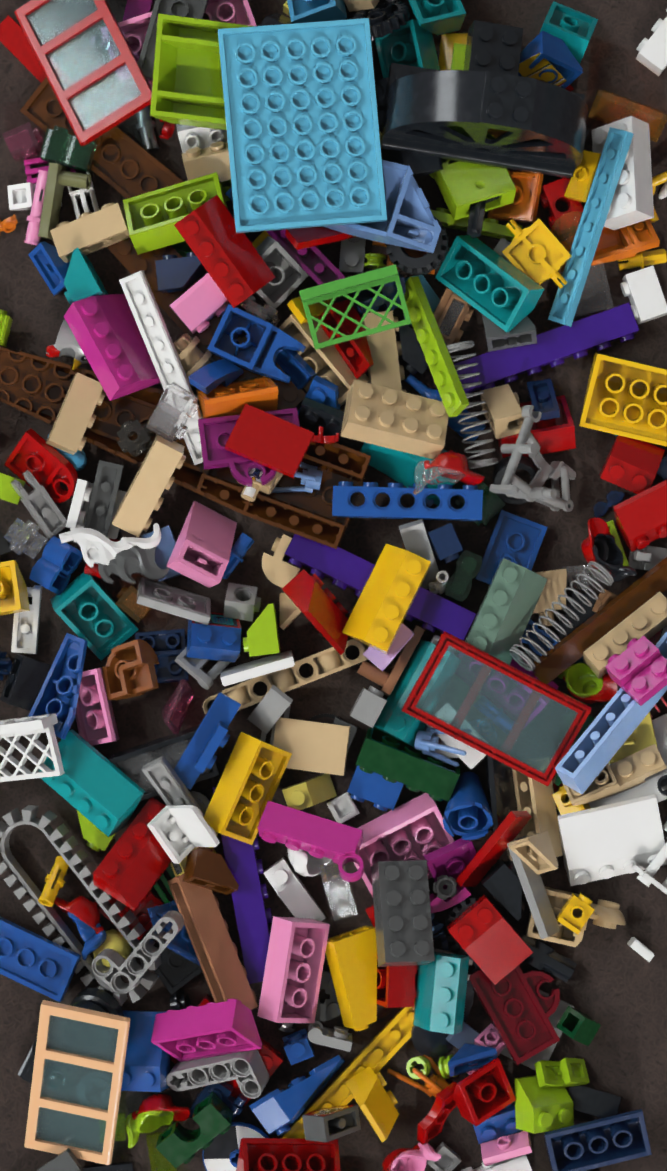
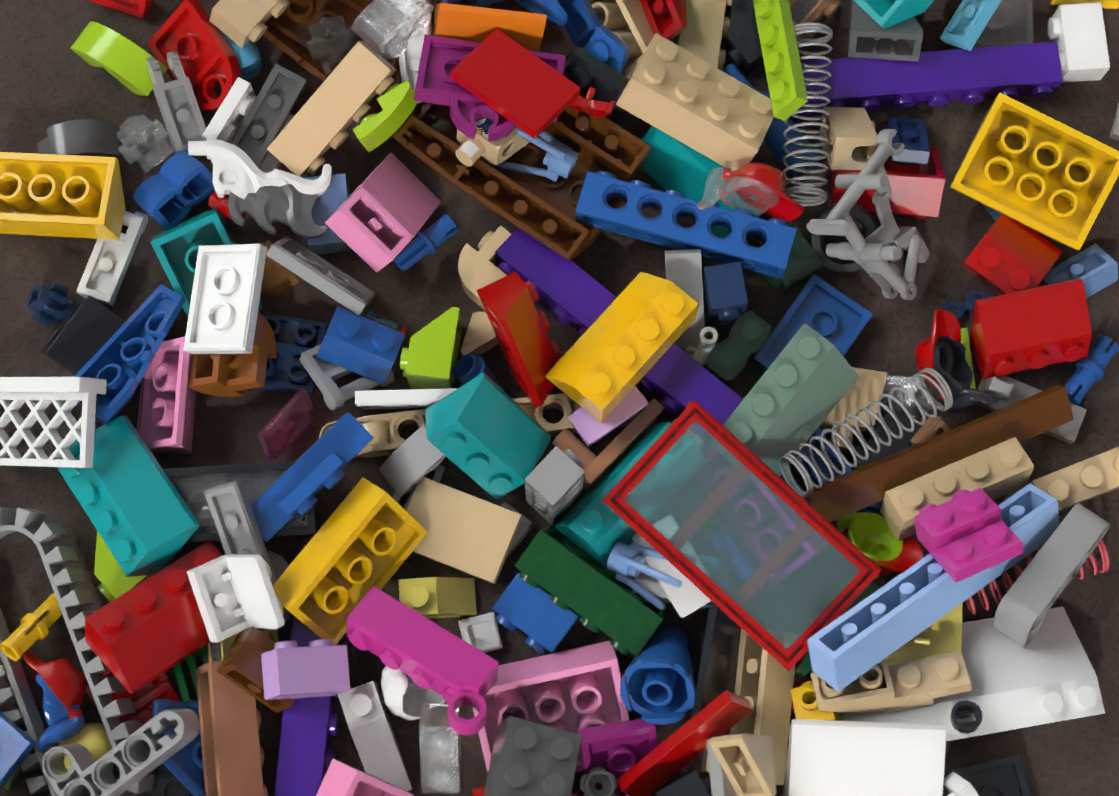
camera: 10 degrees right, 10 degrees down
(116, 637) = (225, 299): none -> white tile
(190, 474) = (397, 106): none -> lime slope
(239, 868) = (305, 671): none -> lavender brick
(241, 602) = (415, 303): light grey brick -> none
(295, 641) = (470, 367): none -> blue cone
(314, 683) = (487, 435): none -> teal slope

